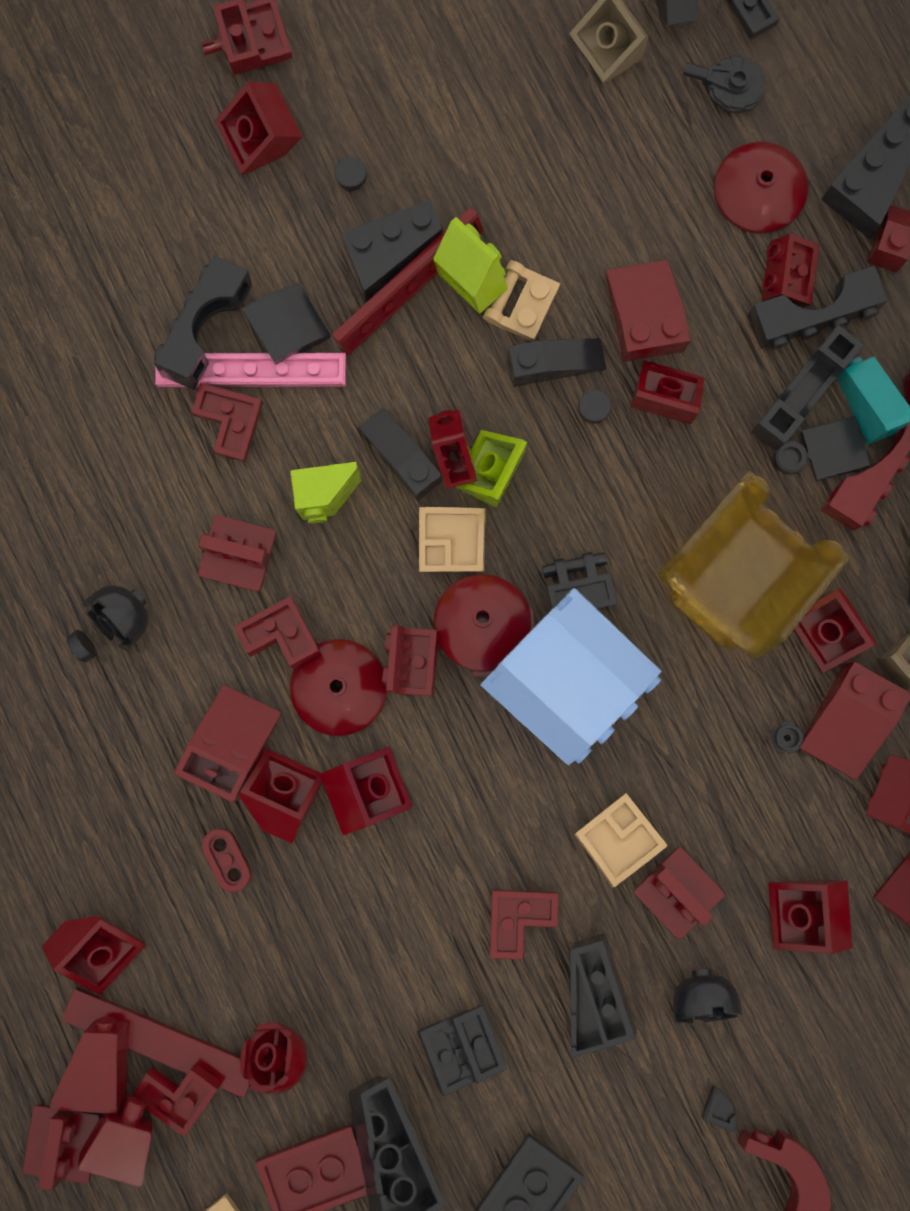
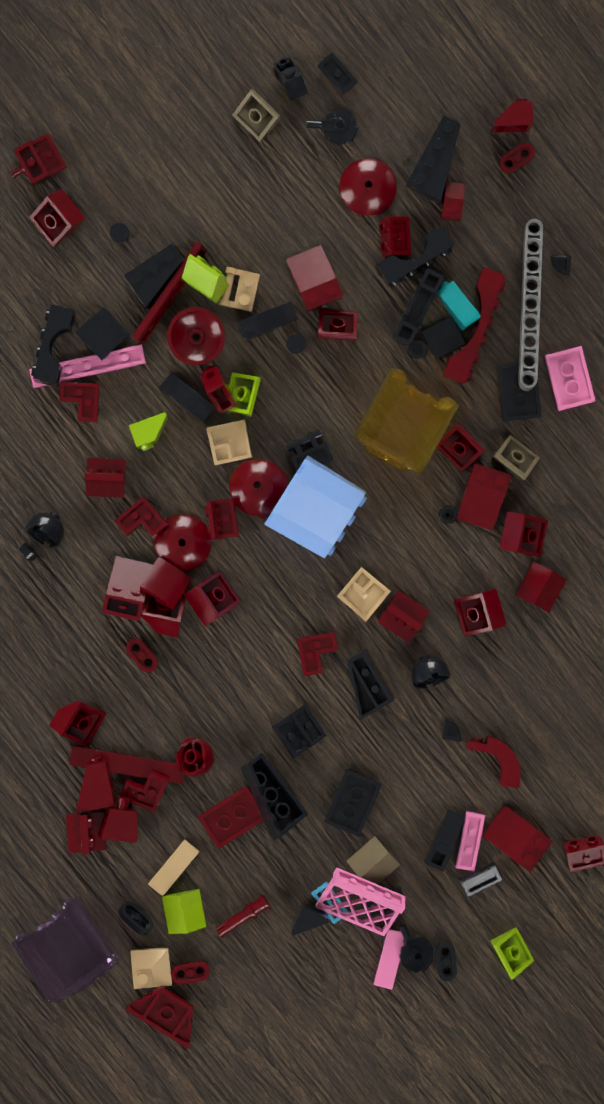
camera: 10 degrees left, 5 degrees up
(293, 748) = (165, 583): none -> dark red slope
(430, 335) = (192, 322): none -> dark red dish

